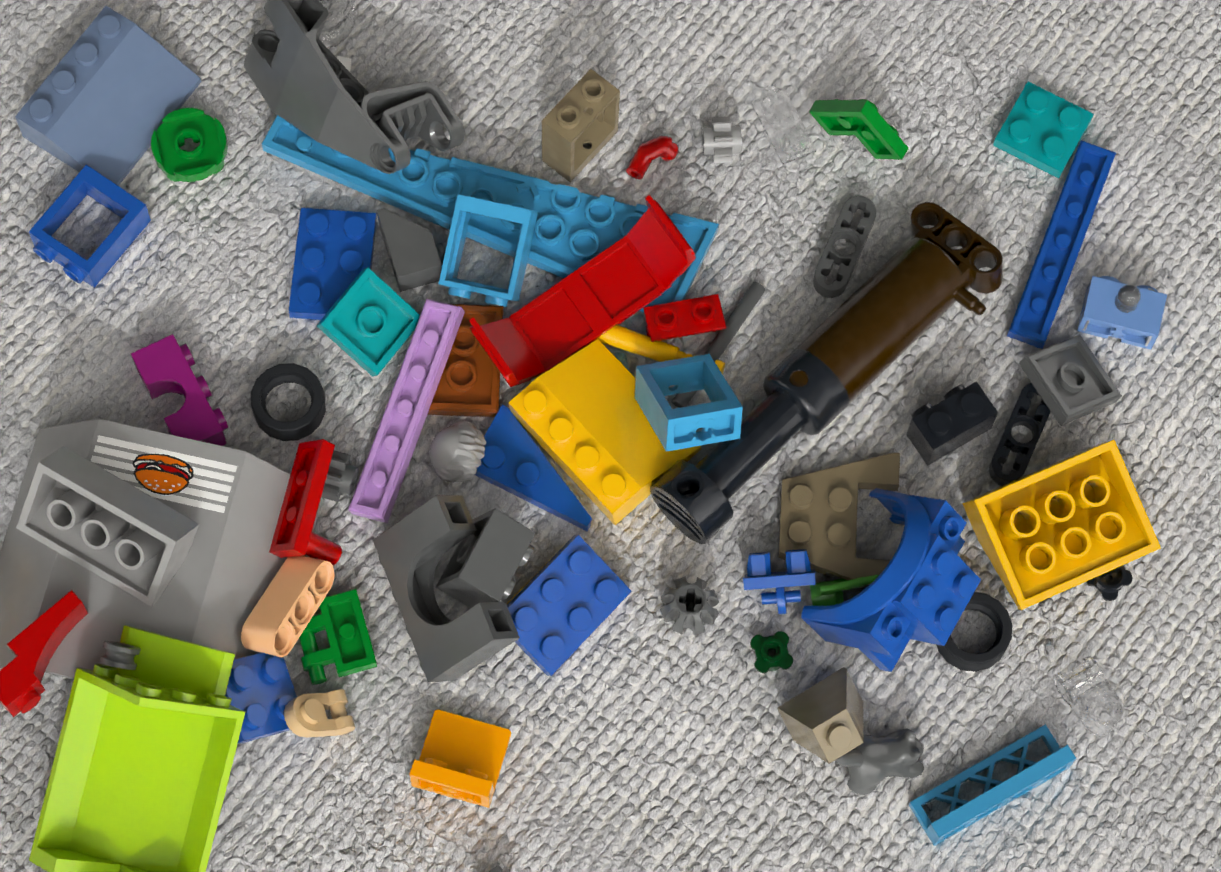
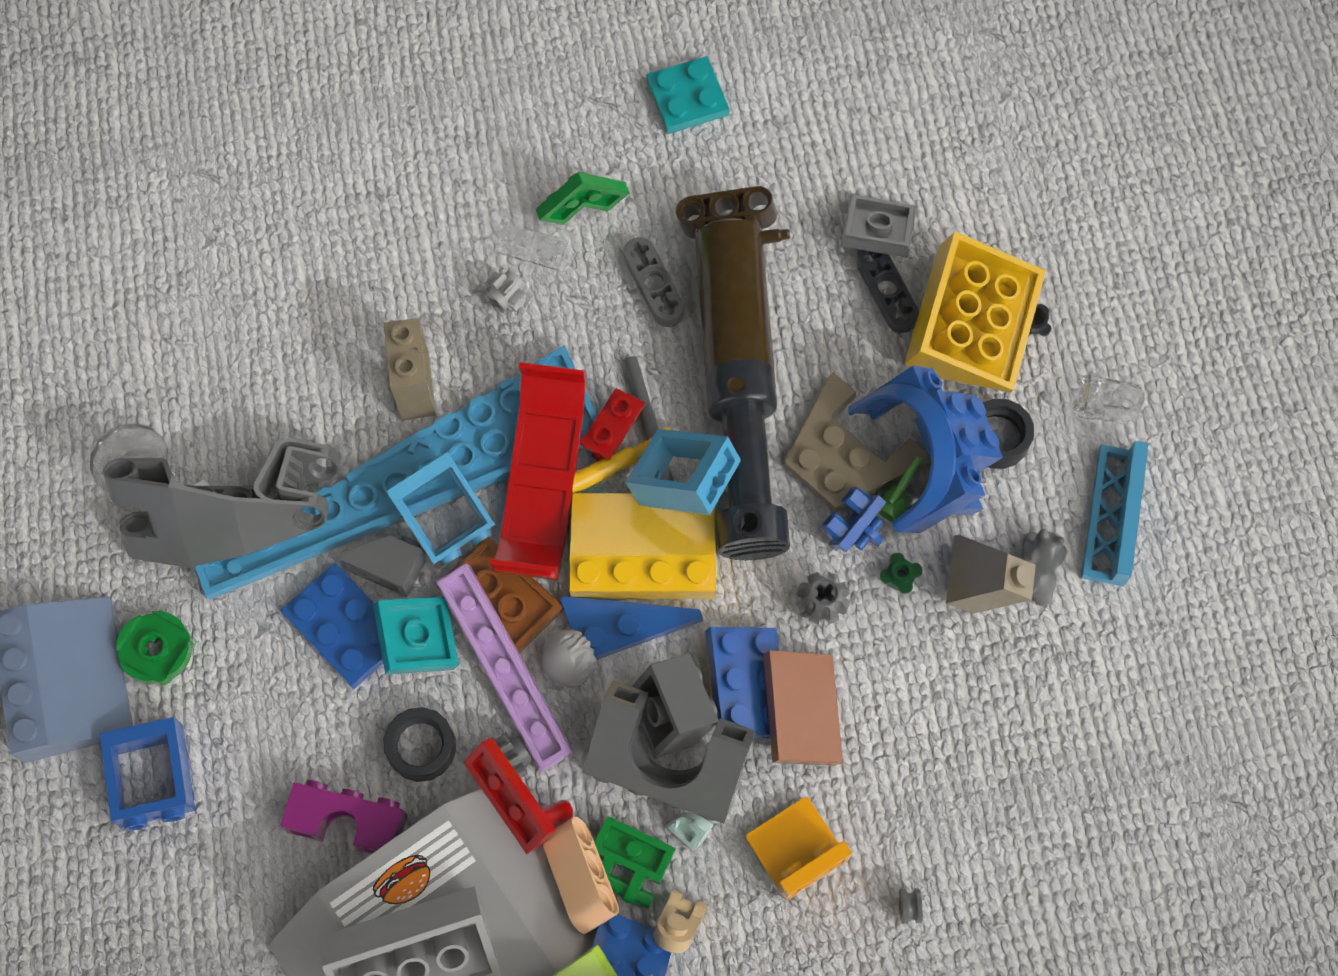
camera: 45 degrees left, 0 degrees up
(402, 662) = (690, 829): none -> light aqua tile
(580, 666) = (802, 708): none -> tile
(649, 151) = (465, 345): red arm -> none
(951, 422) = (844, 321): black brick -> none
(1061, 245) = (777, 153): blue tile -> none
(1122, 311) = (860, 155): medium blue piece -> none

